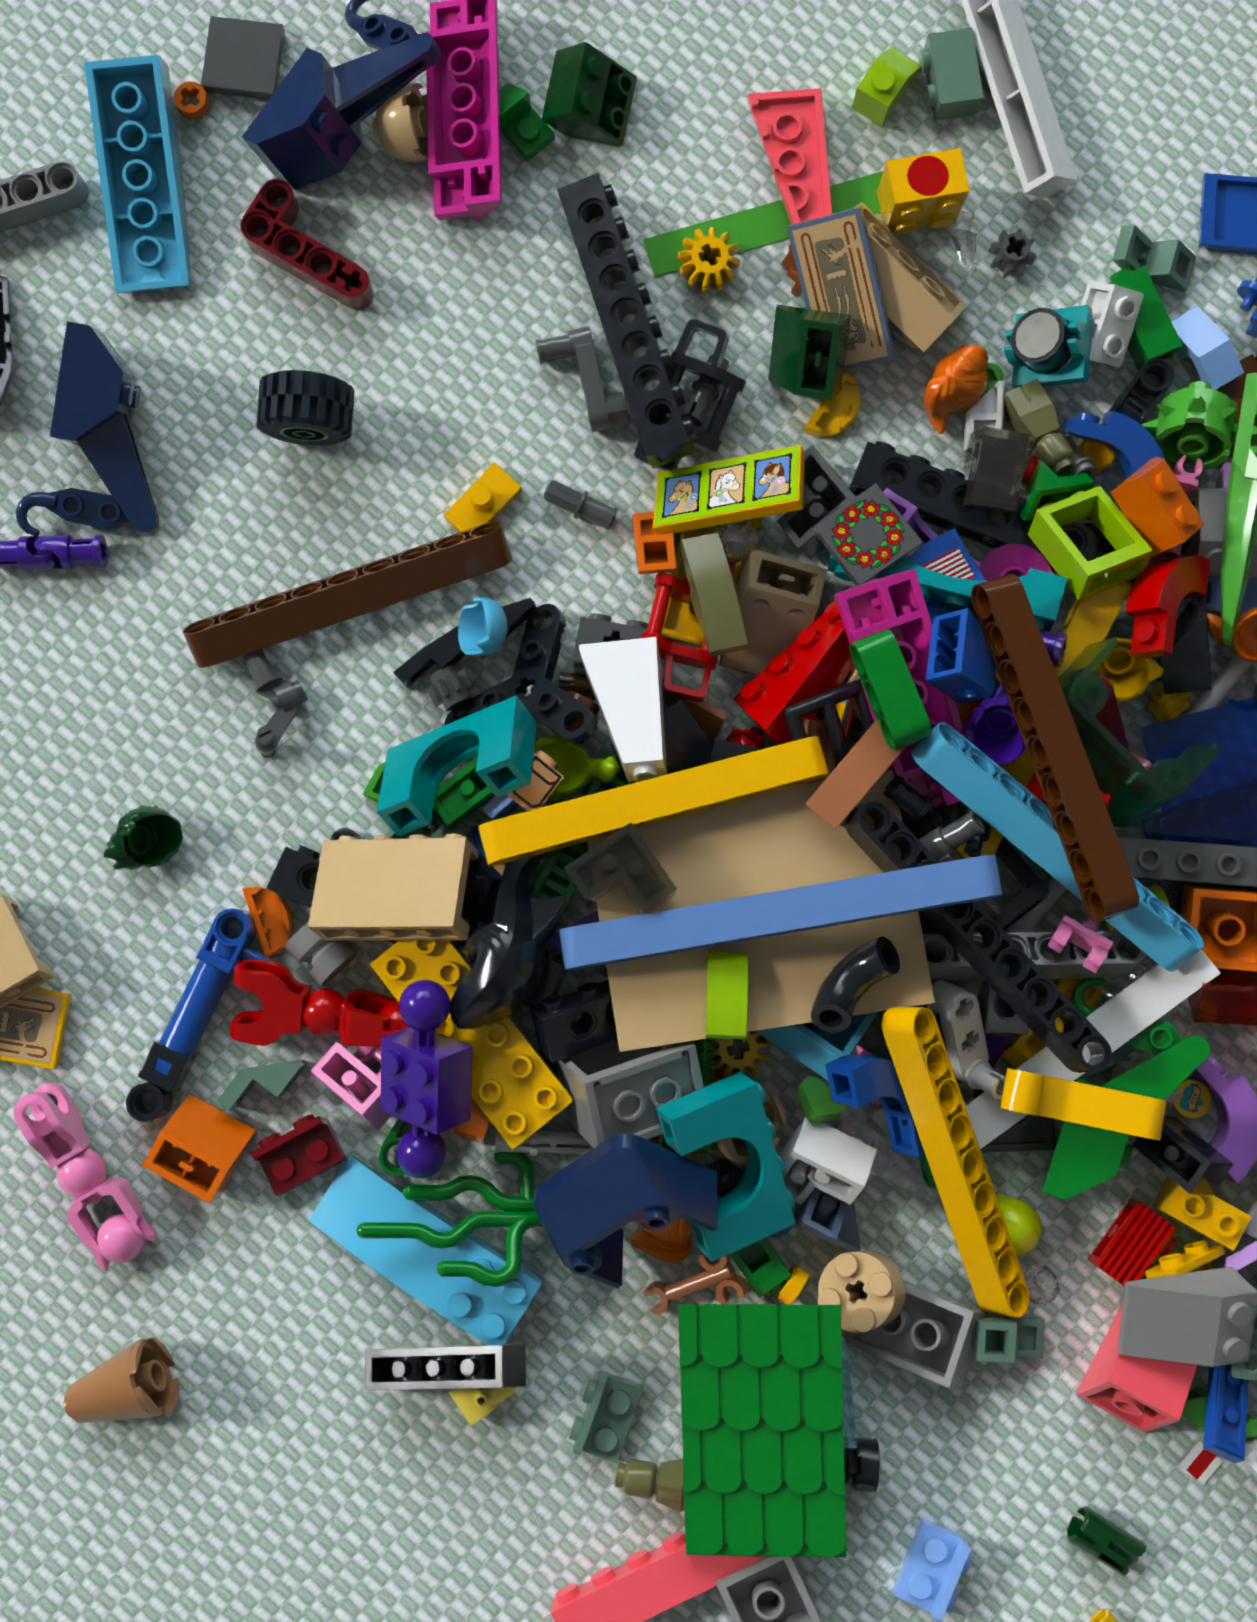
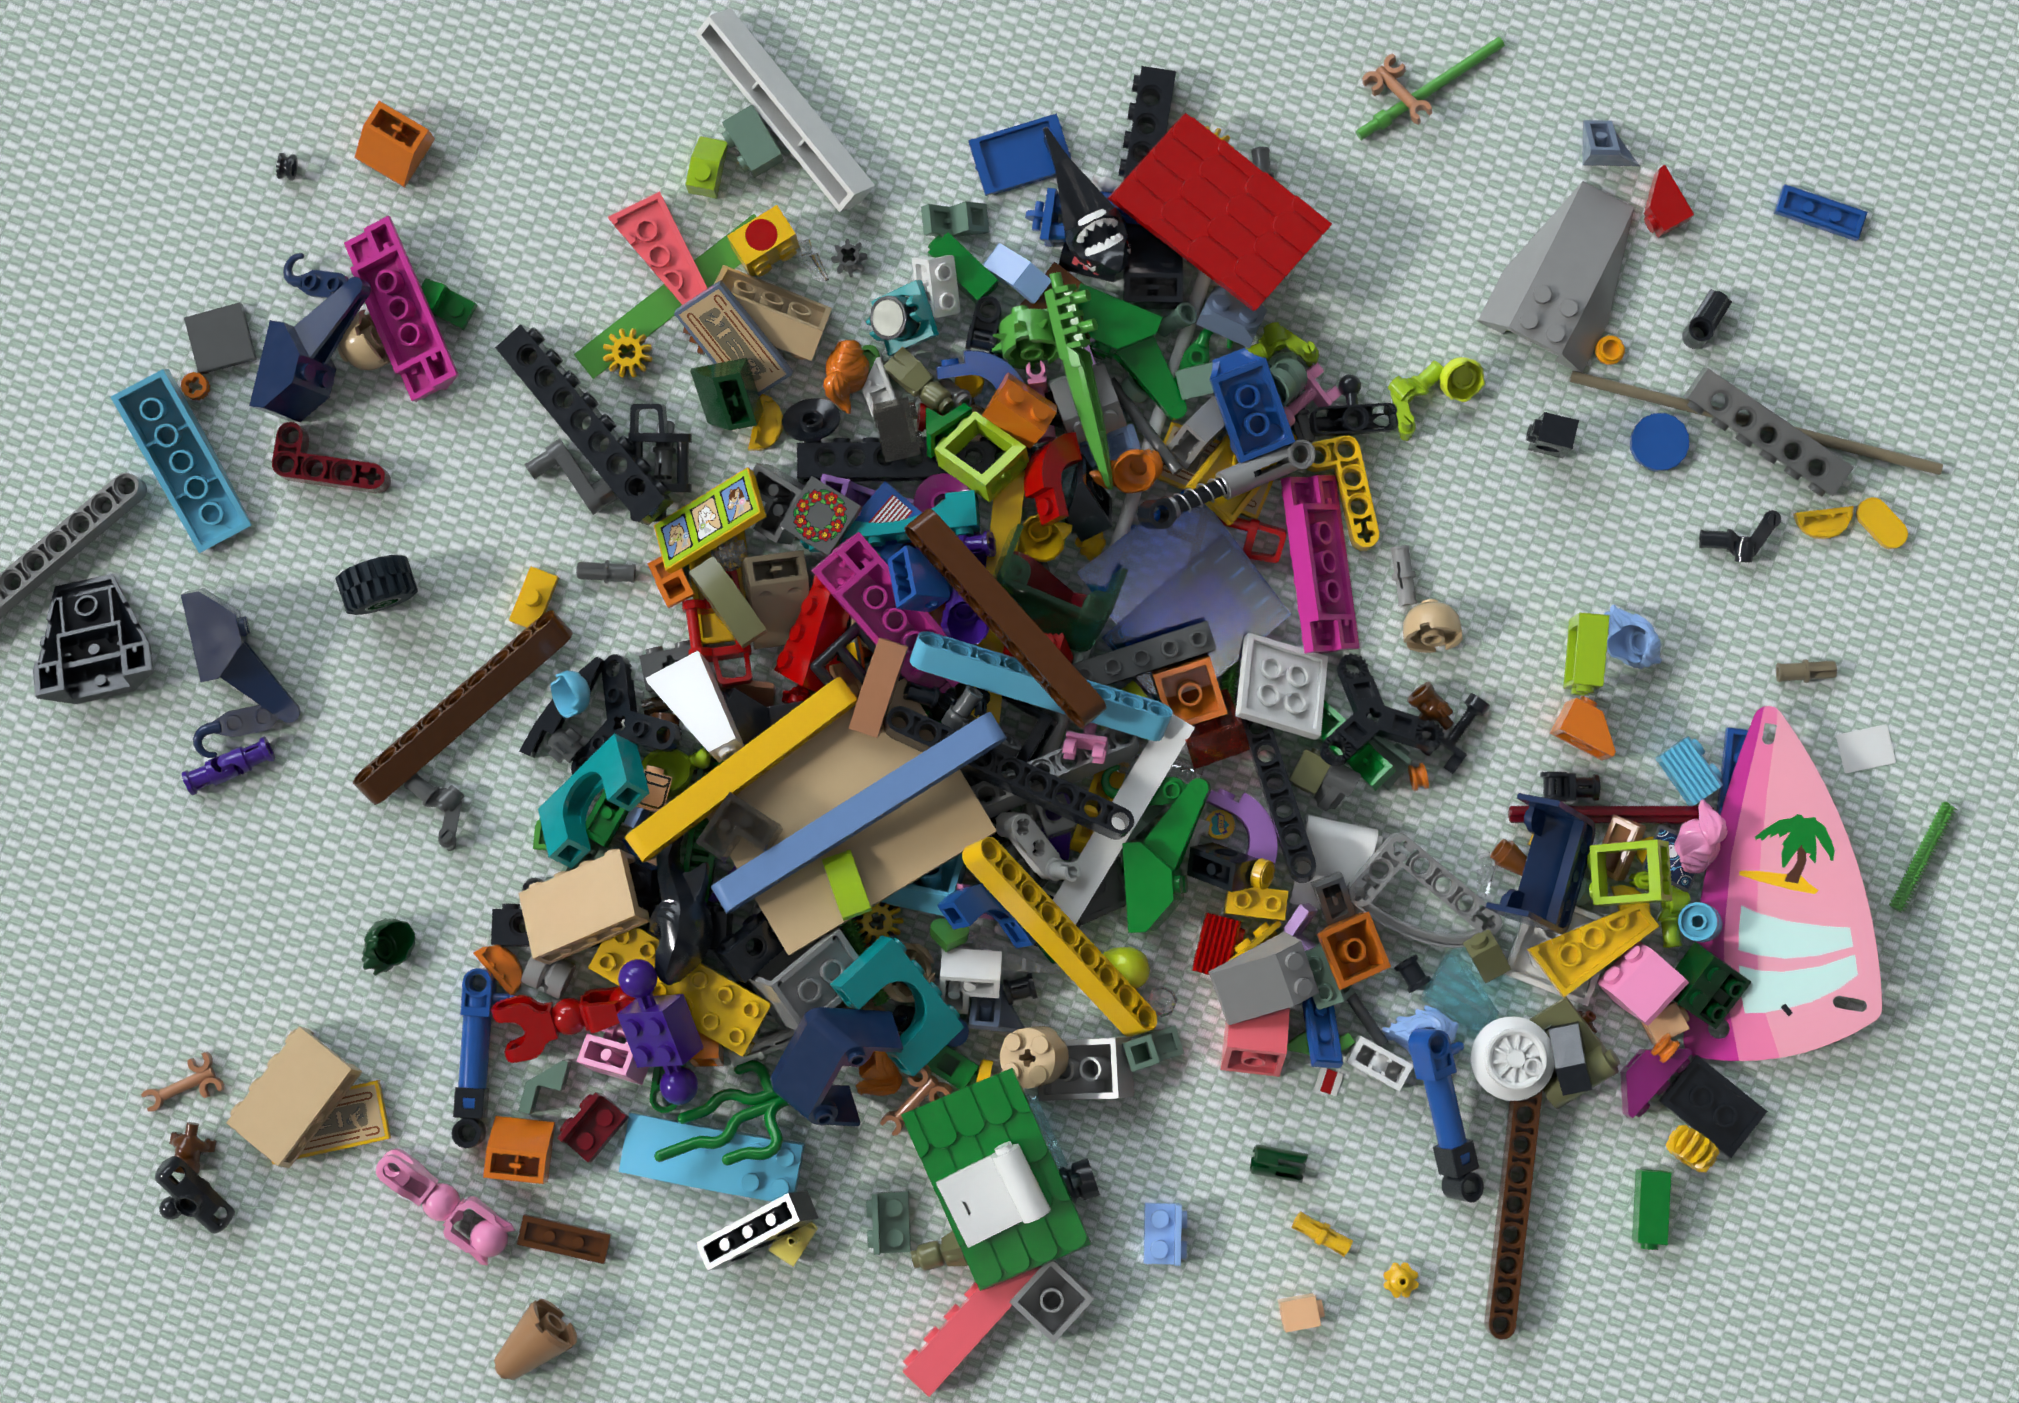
camera: 20 degrees left, 0 degrees up
(210, 1275) = (564, 1239): none -> reddish brown plate
(589, 95) = (490, 265): dark green slope -> none
(759, 1451) = (996, 1191): none -> white door
(850, 980) = (930, 839): black cylinder -> none
(886, 1207) = (1027, 985): none -> black bush
(890, 689) = (875, 624): green beam -> none
(893, 422) = (811, 419): none -> black dish
(1083, 1104) = (1126, 859): yellow beam -> none
(1230, 1184) = (1262, 874): none -> yellow tile

